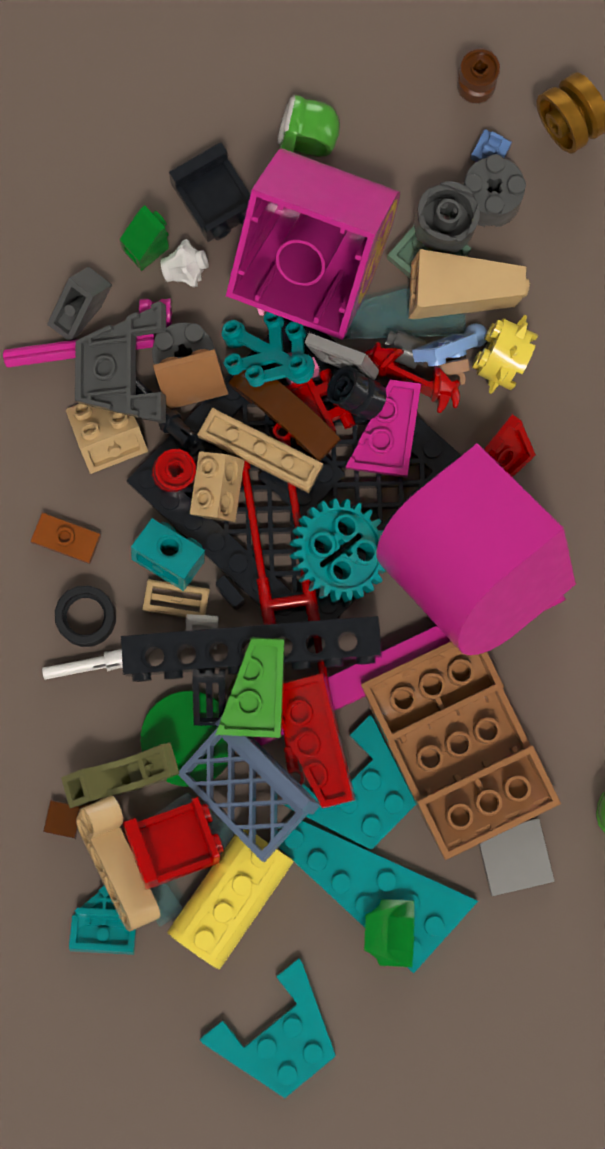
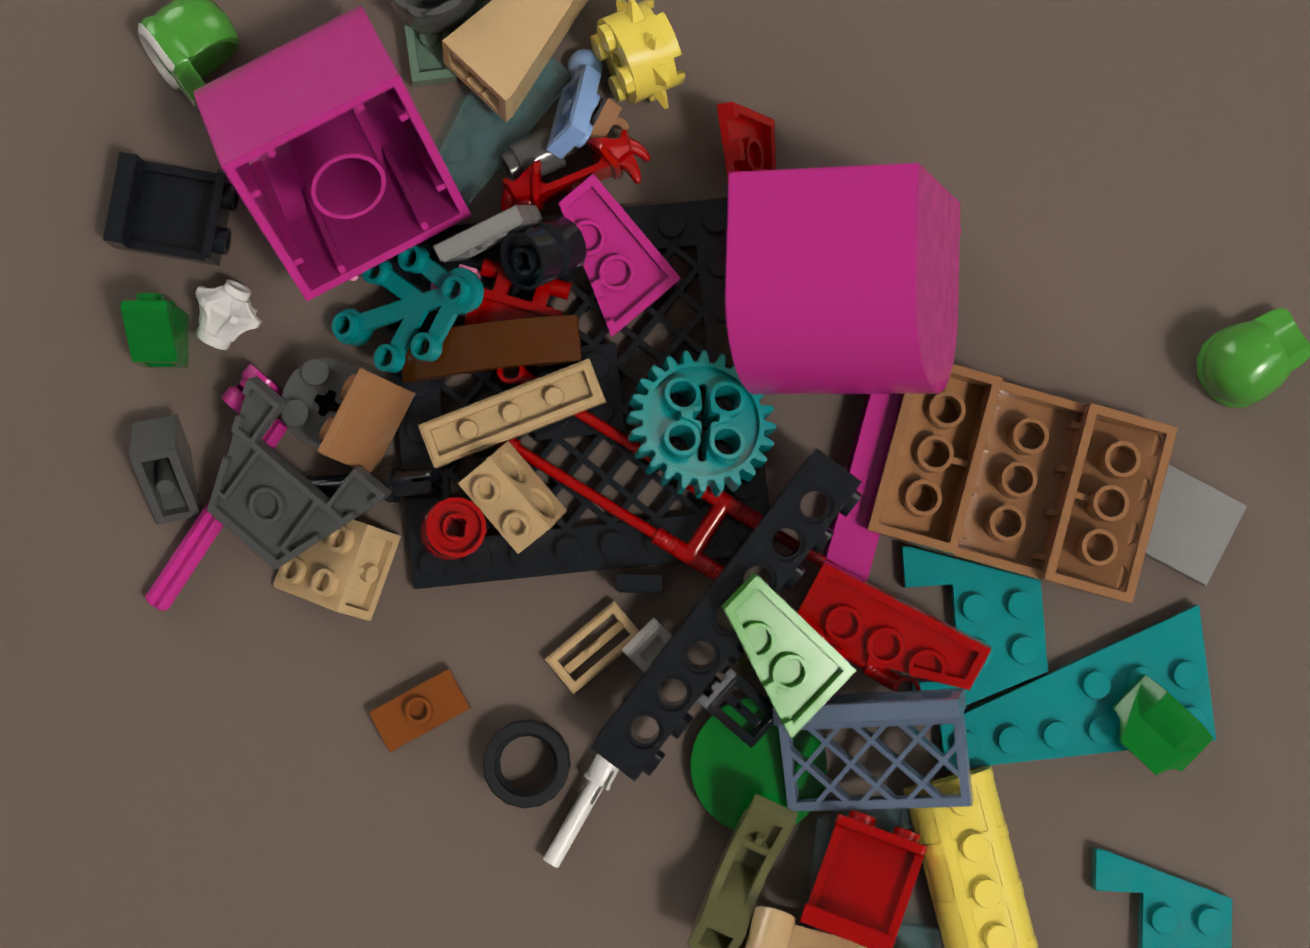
camera: 50 degrees left, 5 degrees up
(175, 569) = (563, 620): teal brick -> none

